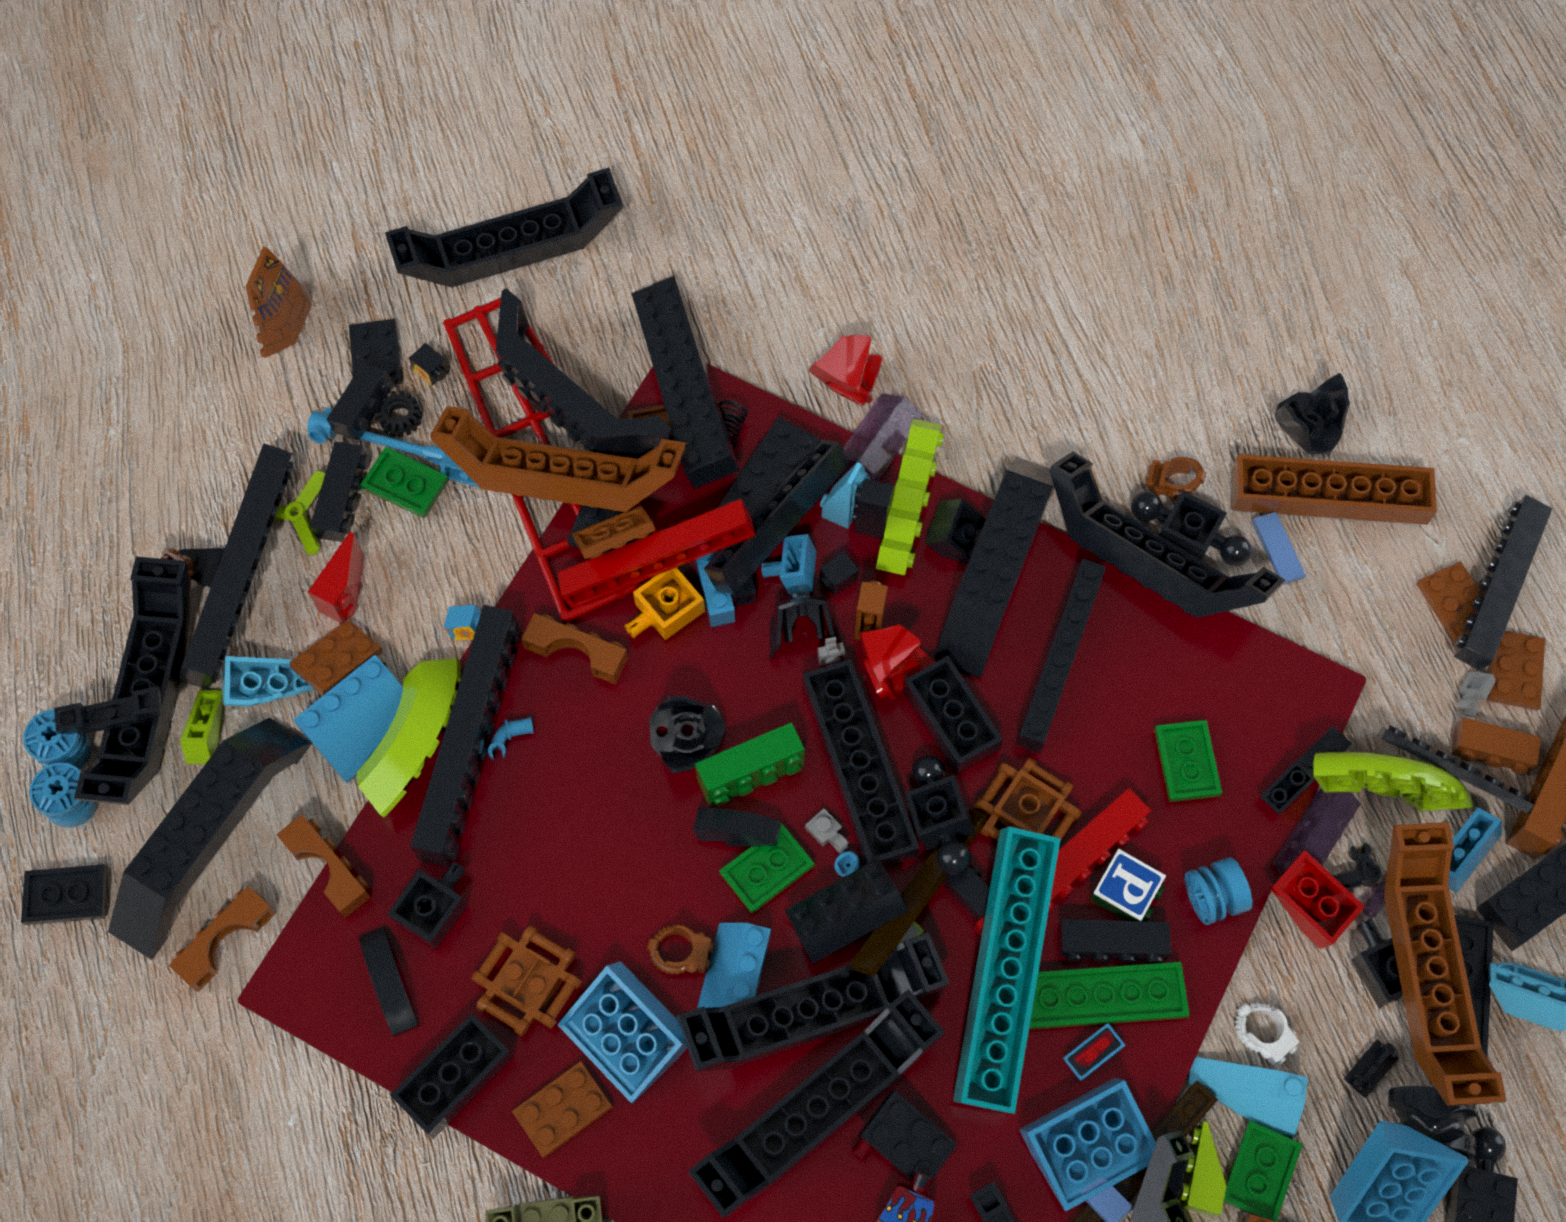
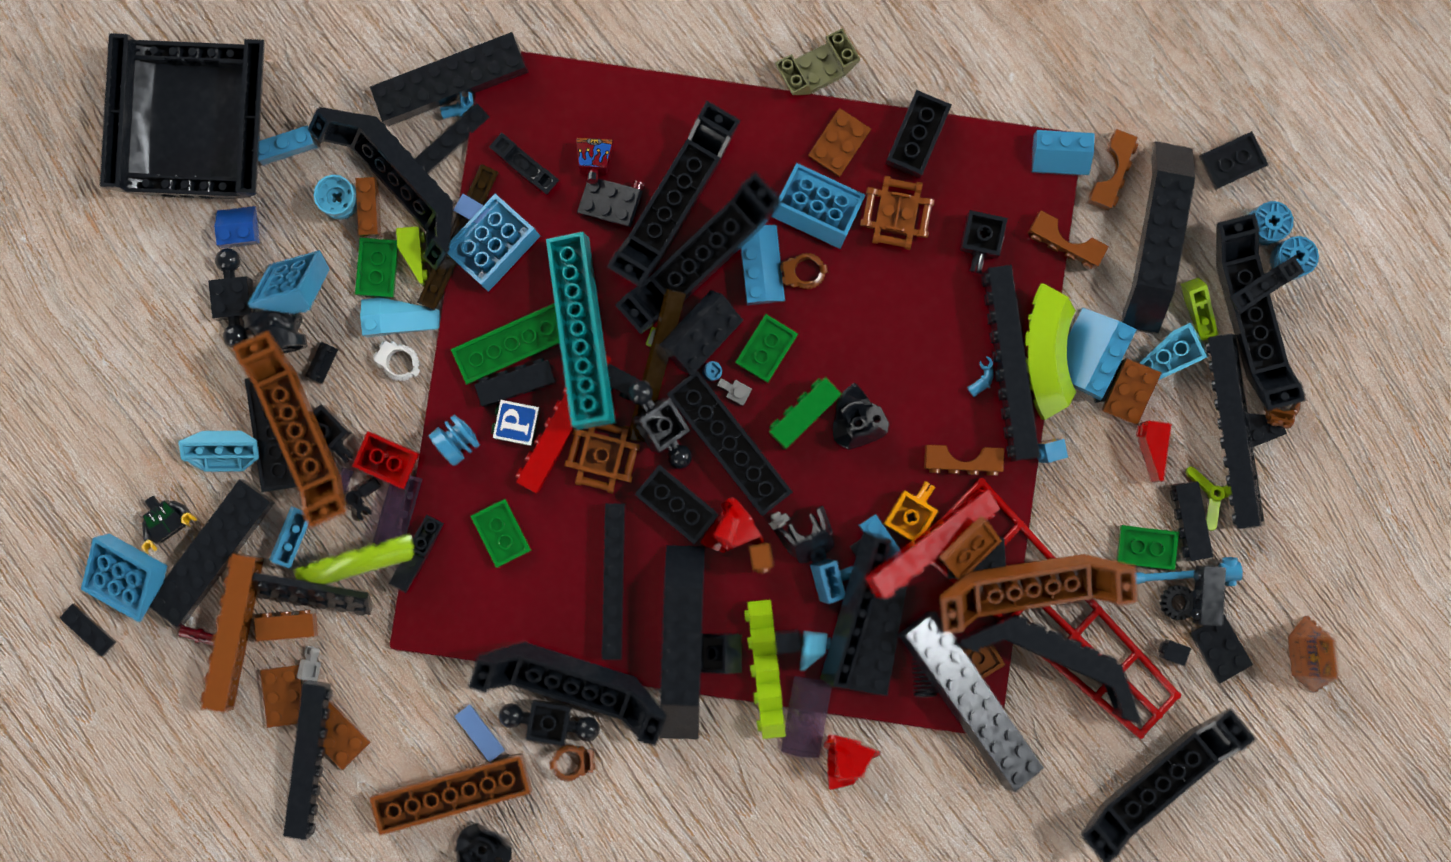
camera: 155 degrees right, 20 degrees up
(274, 982) = (1062, 152): none -> dark azure slope
(387, 981) = (990, 182): black slope -> none
(736, 827) = (797, 367): black slope -> none
(838, 574) = (796, 586): black brick -> none
(1094, 1051) = (506, 304): slope -> none

